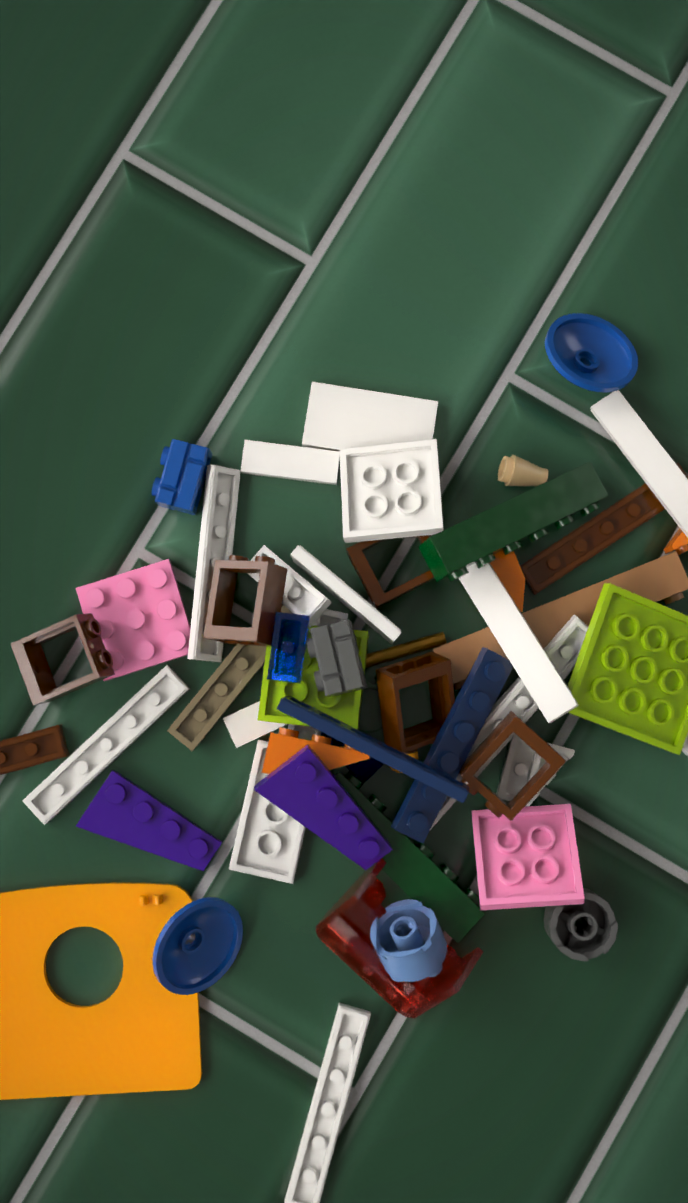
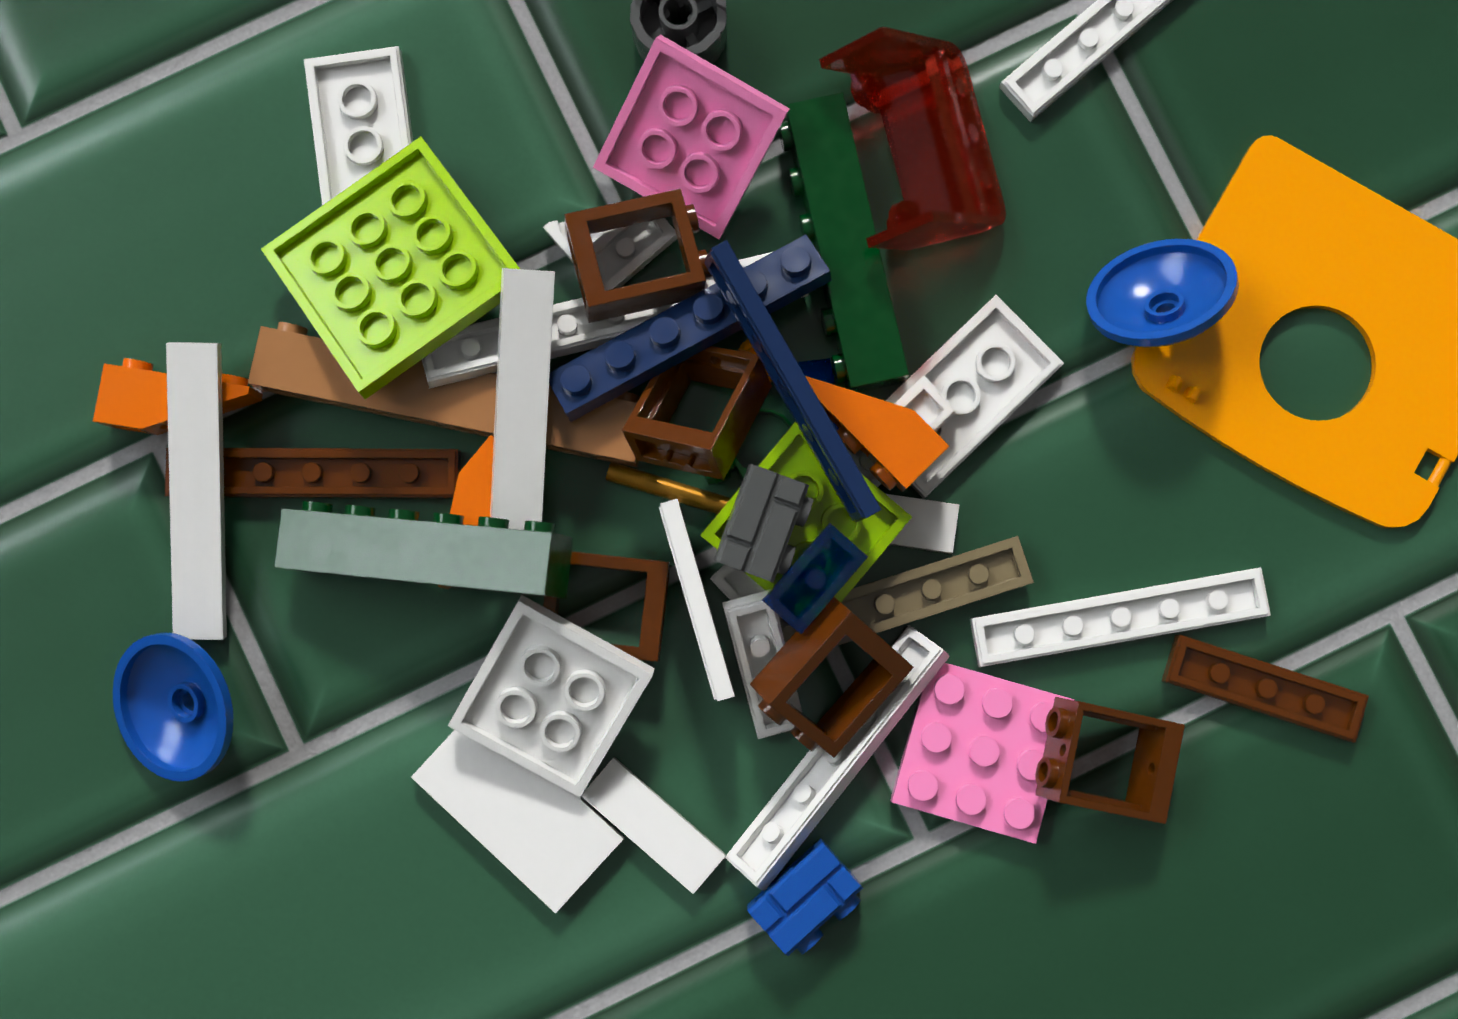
camera: 145 degrees left, 0 degrees up
(143, 821) = (1133, 490): dark purple wing -> none
(320, 803) = (900, 360): dark purple wing -> none
(409, 941) = (900, 129): medium blue brick -> none
(519, 472) = (371, 614): tan cone -> none

